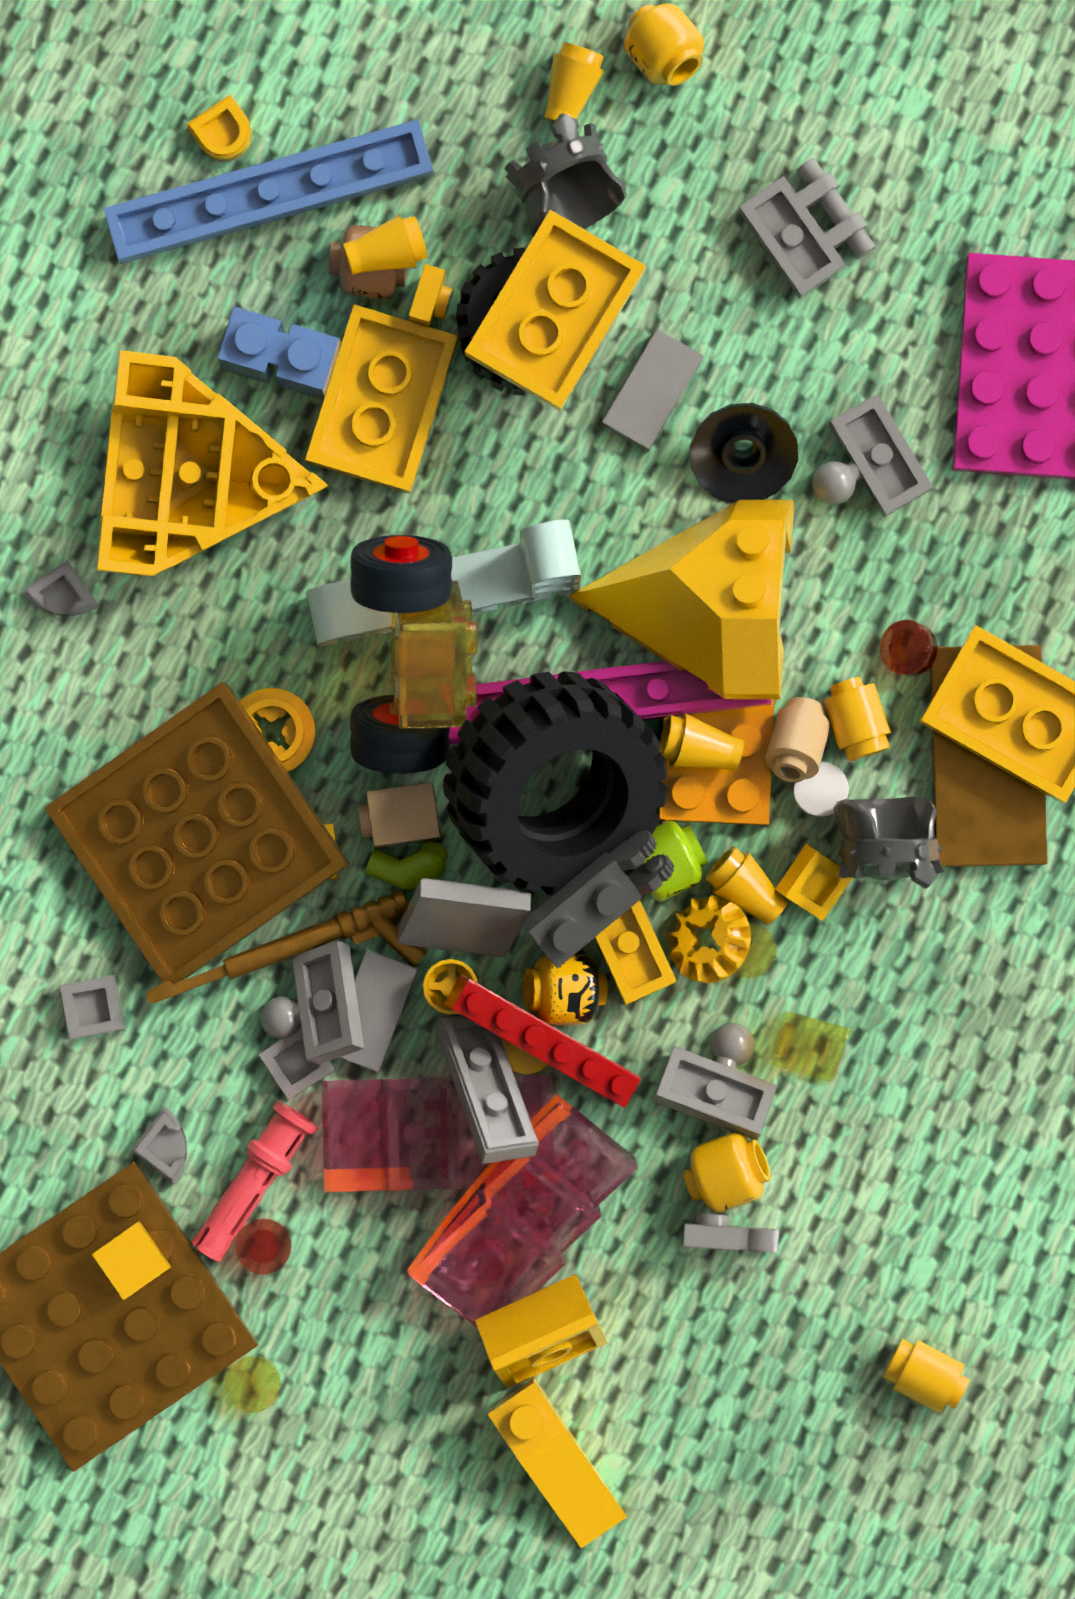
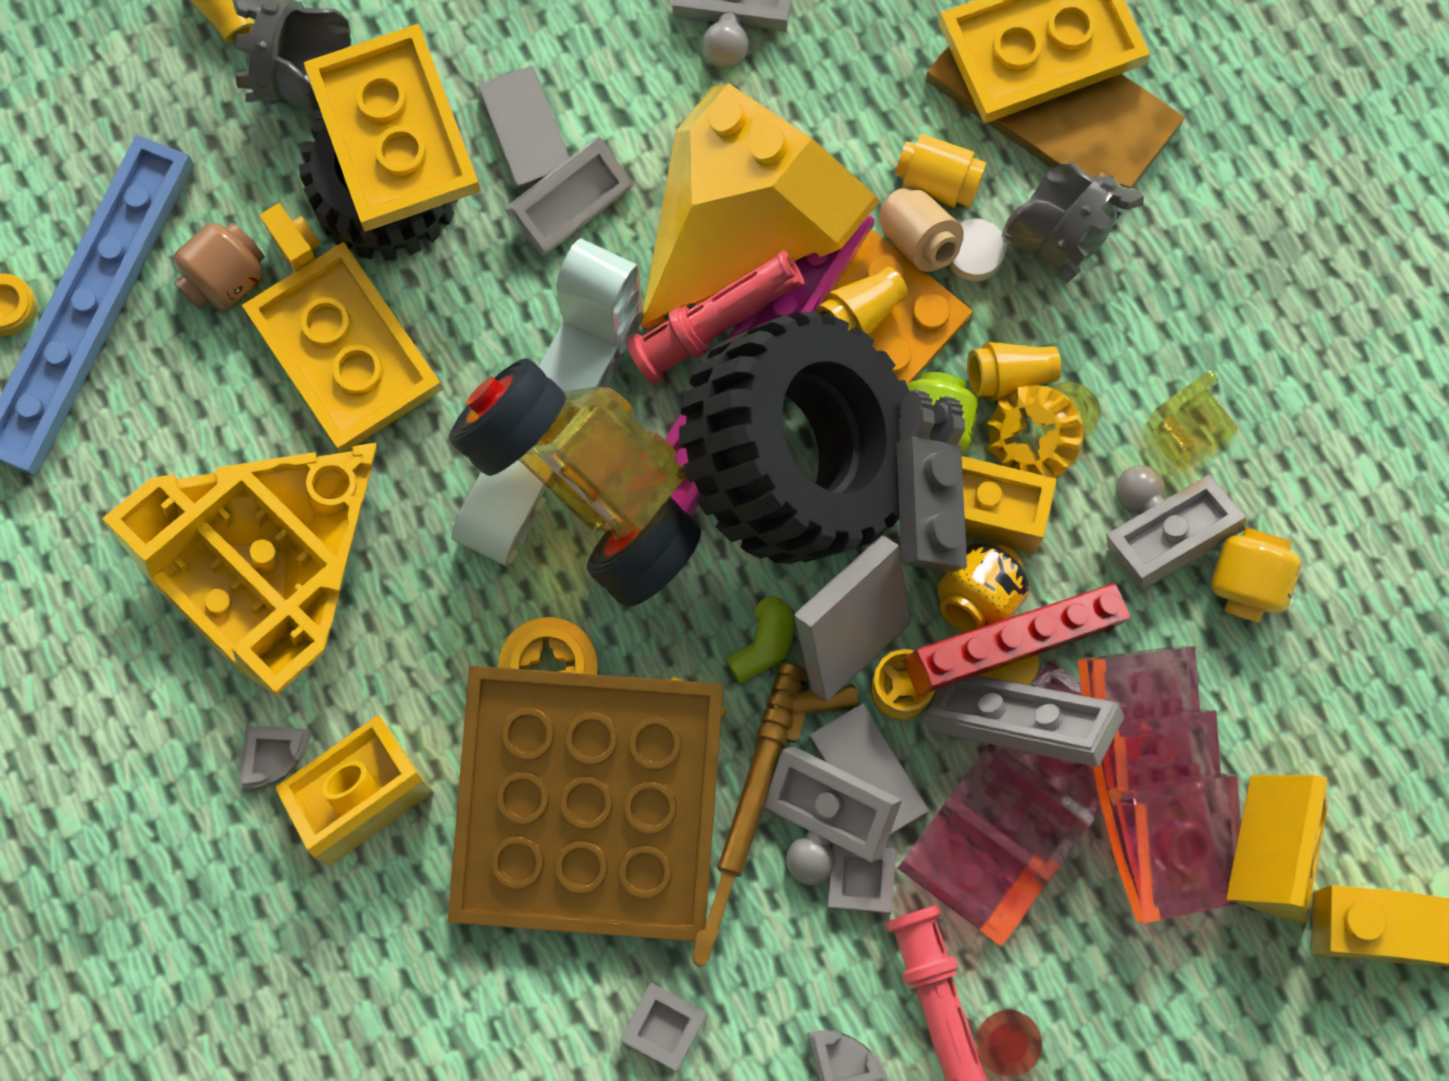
camera: 50 degrees left, 10 degrees down
(80, 668) = (352, 791): none -> yellow slope
(302, 356) = (201, 402): medium blue piece -> none
(387, 247) = (218, 226): yellow cone -> none
(400, 816) = (715, 609): tan brick -> none
(589, 638) = (692, 329): none -> coral pin
(623, 466) = (569, 197): none -> light grey tile
(713, 1232) = (1301, 626): light grey plate -> none
(746, 473) = (663, 88): black dish -> none
(813, 882) = (1053, 310): yellow plate -> none
(908, 648) = (912, 89): clear red tile -> none

